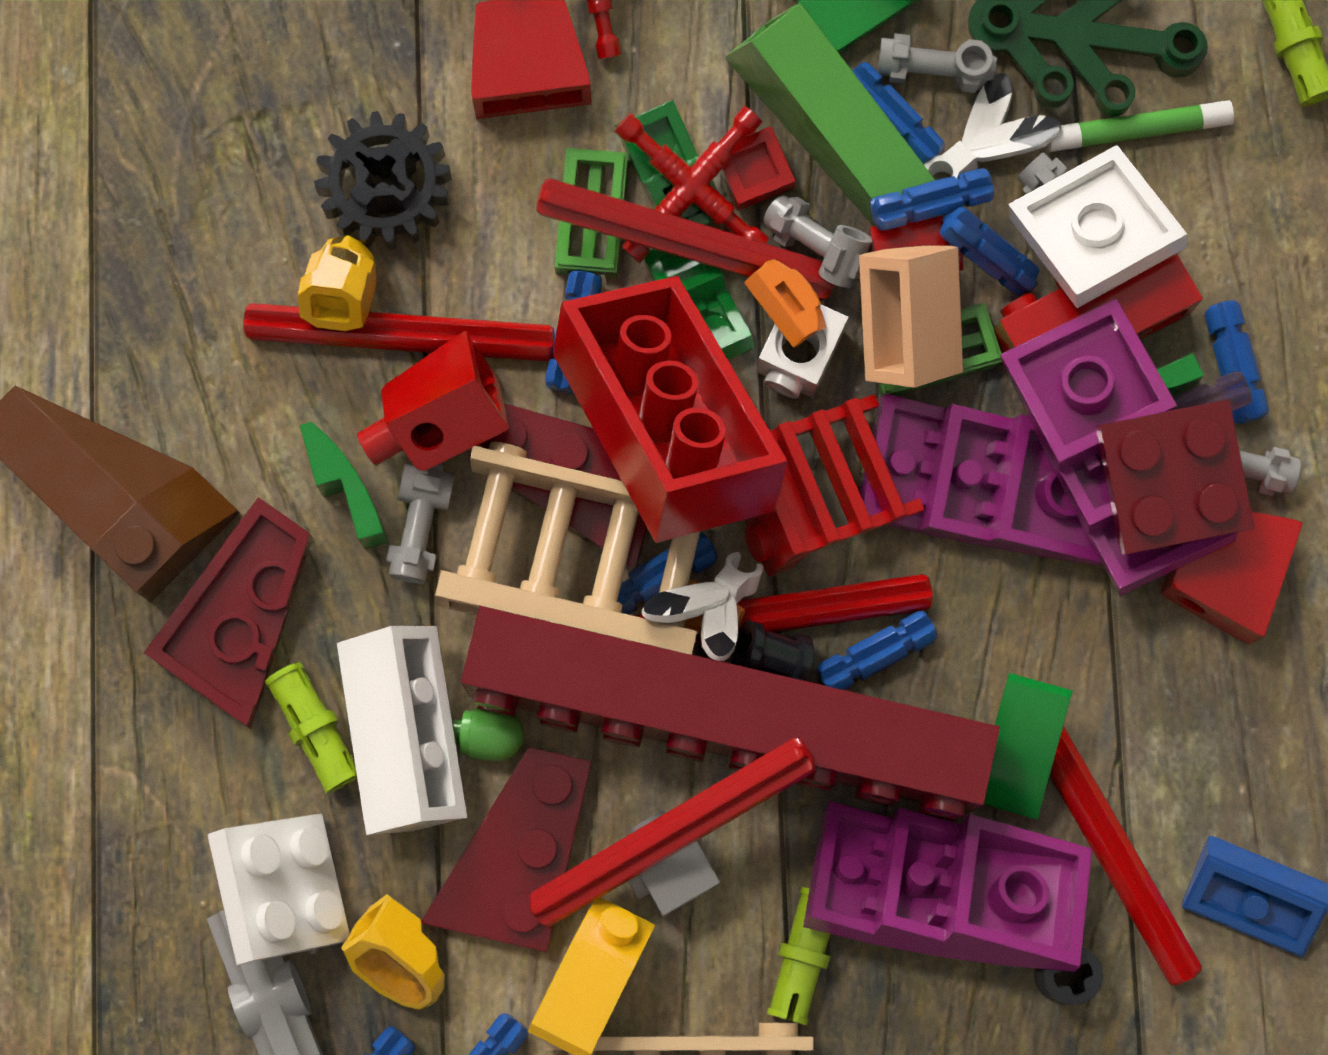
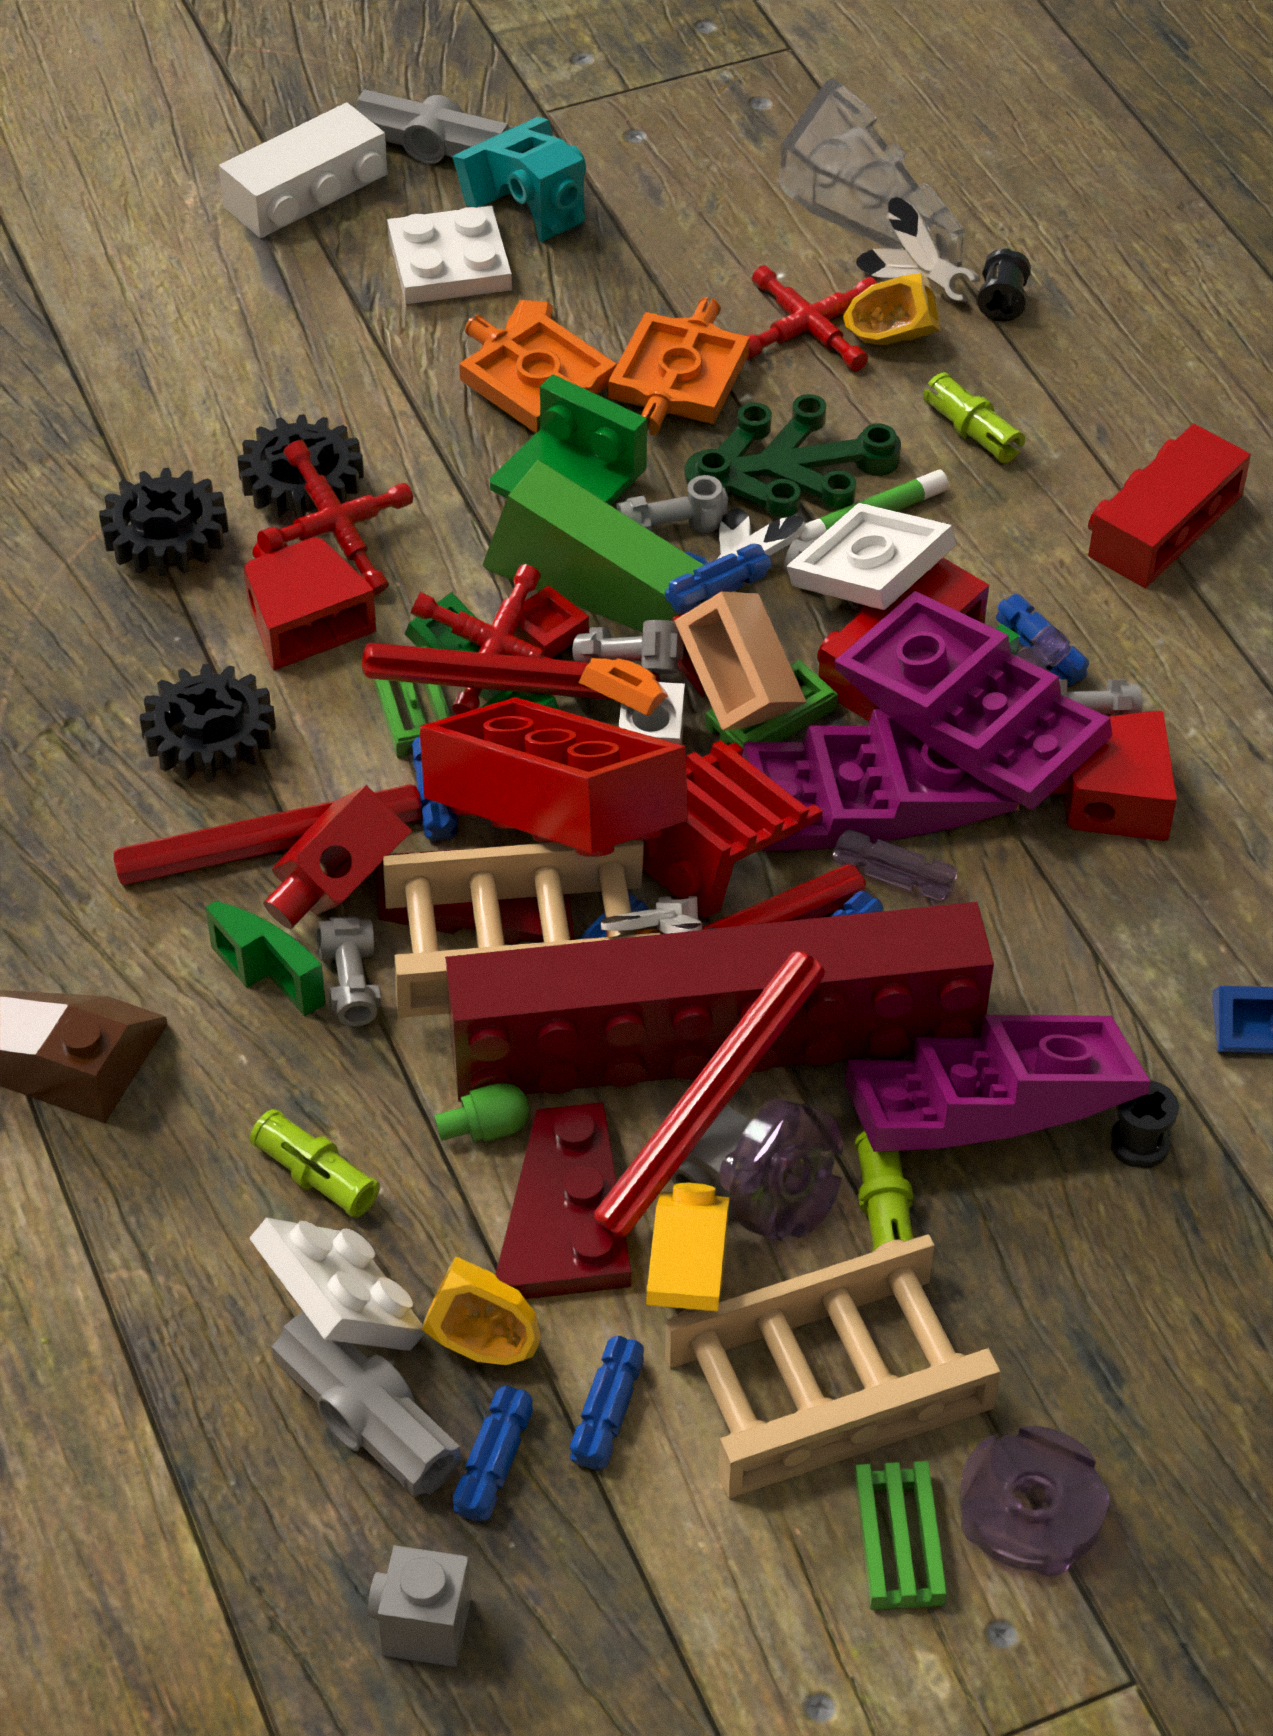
camera: 20 degrees left, 30 degrees down
(235, 613) = (197, 1093): dark red wing -> none
(338, 285) = (198, 801): yellow rock -> none
(401, 729) = (405, 1123): white brick -> none
(713, 917) = (777, 1139): none -> plate
(971, 587) = (895, 865): none -> axle
(989, 251) = (788, 610): blue axle -> none
(1027, 742) = (1015, 948): green slope -> none
(1122, 865) = (1137, 1023): red axle -> none
(1175, 476) = (1033, 684): dark red plate -> none

